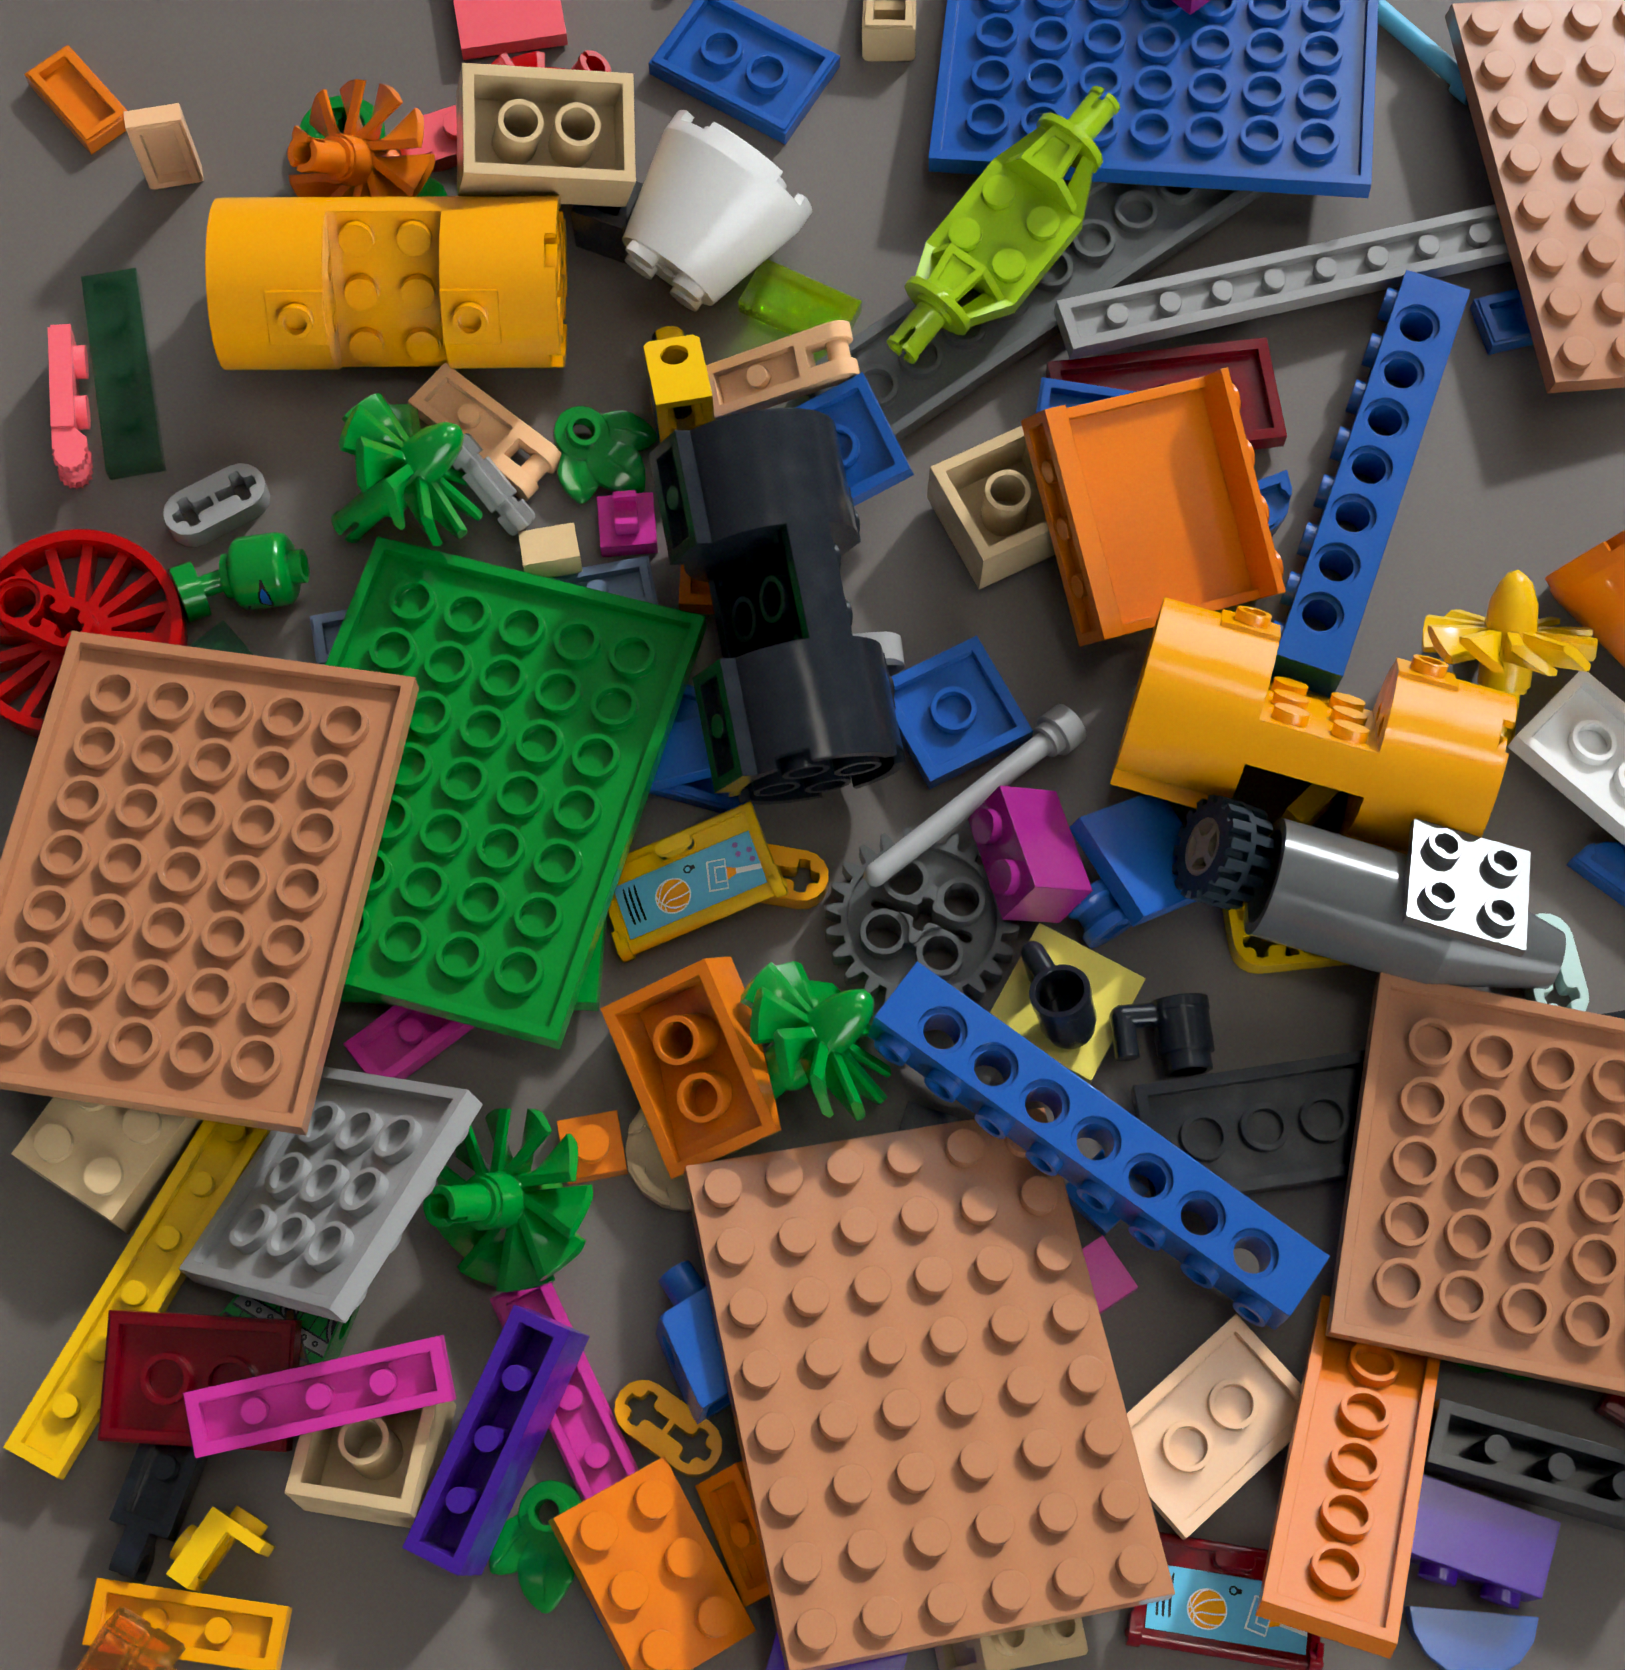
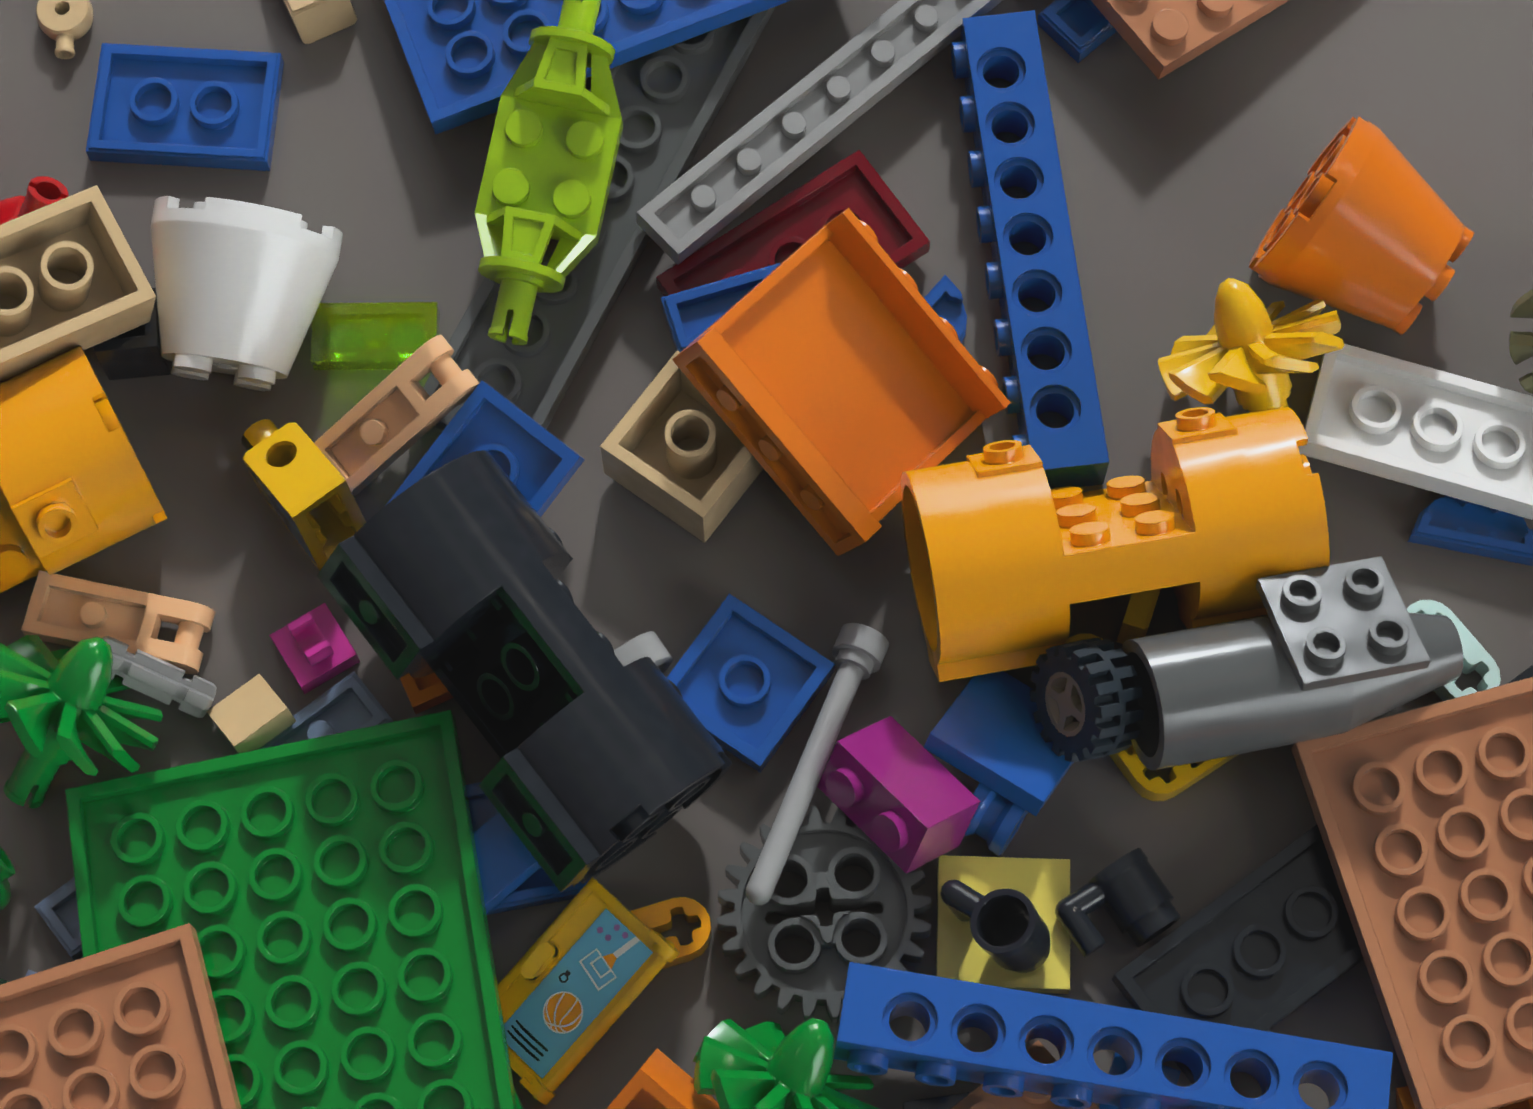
camera: 25 degrees left, 0 degrees up
(607, 458) = (259, 585): green plate -> none

